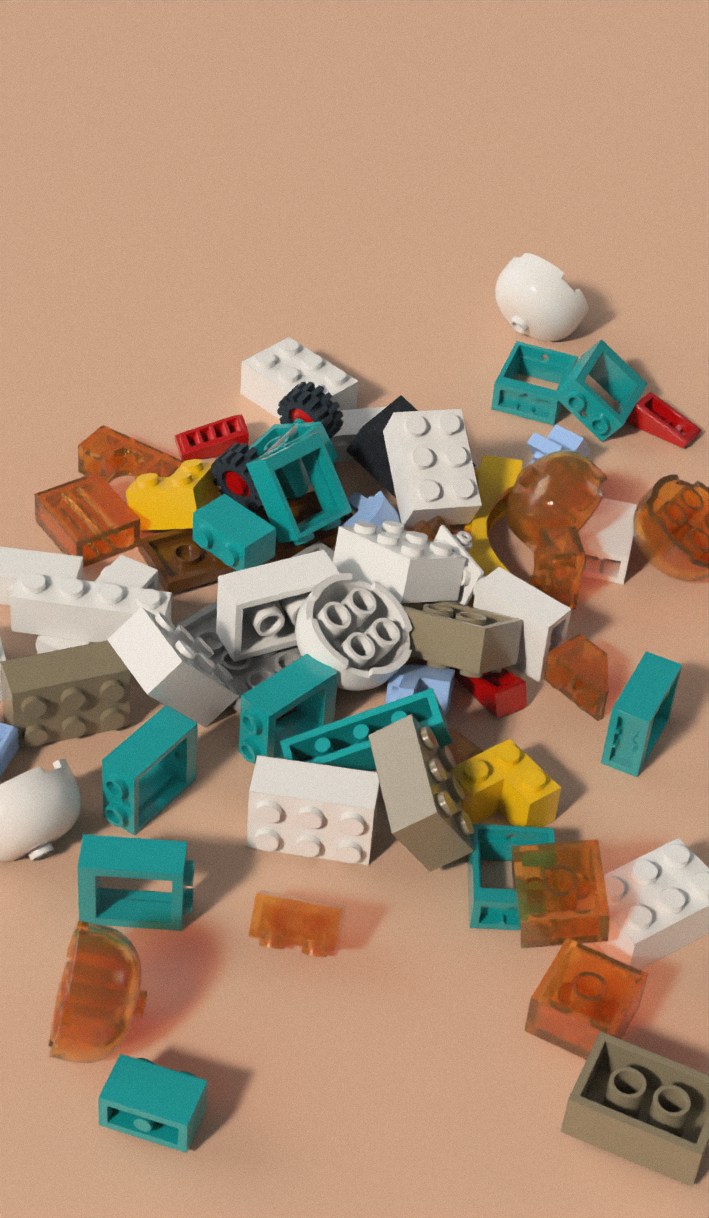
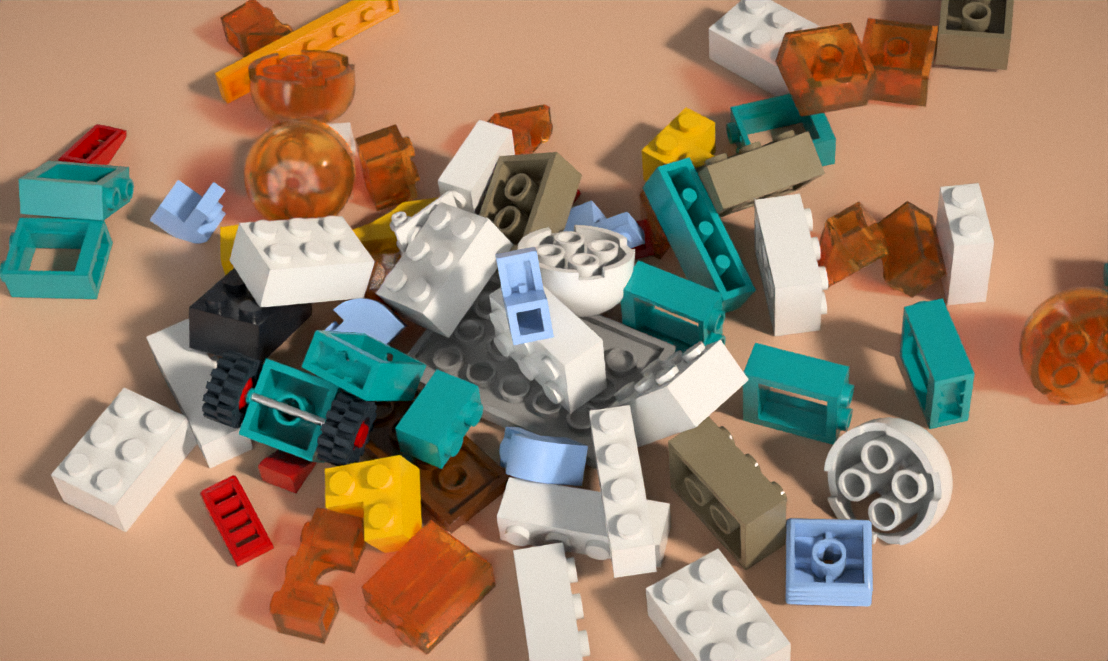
camera: 95 degrees left, 10 degrees up
(184, 587) = (542, 457): none -> light blue brick
(271, 948) = (964, 243): none -> white brick
(285, 552) = (524, 296): none -> light blue brick
(316, 863) = (850, 243): none -> clear orange slope
(641, 714) = (568, 59): teal window -> none

